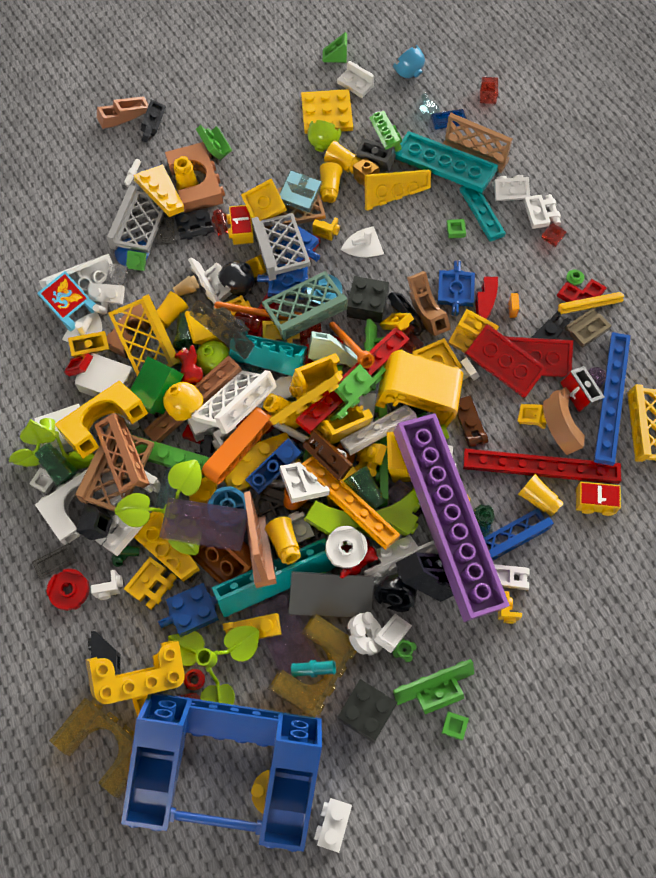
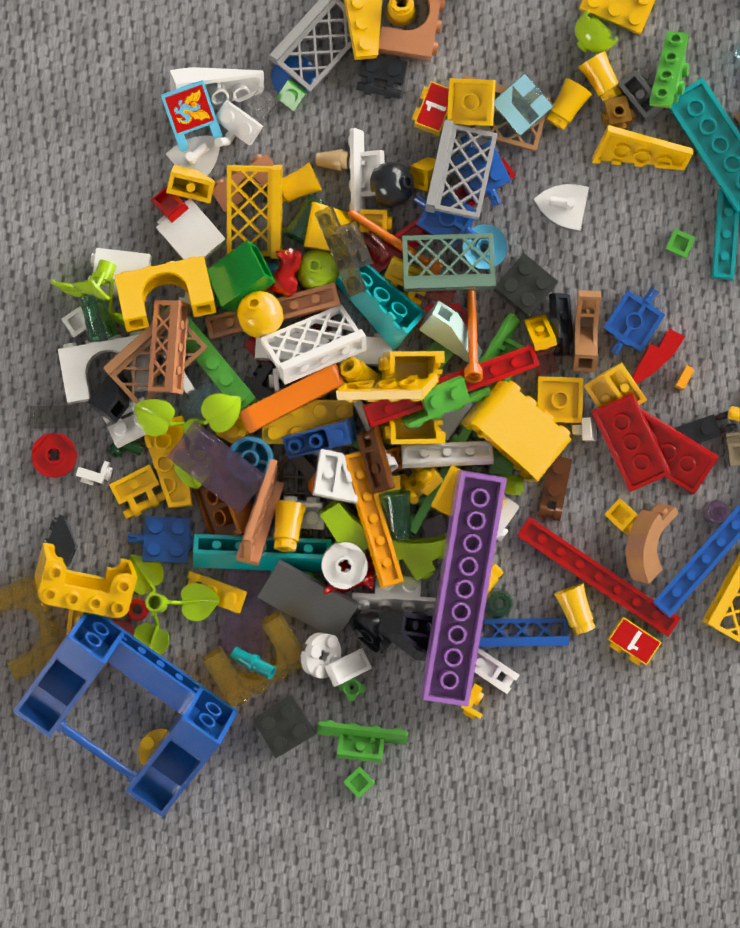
camera: 25 degrees right, 20 degrees up
(220, 218) = (414, 83): clear red arm -> none
(326, 230) = (526, 165): yellow bracket -> none
(334, 825) = (207, 802): white brick -> none
(582, 389) = (692, 517): brick -> none

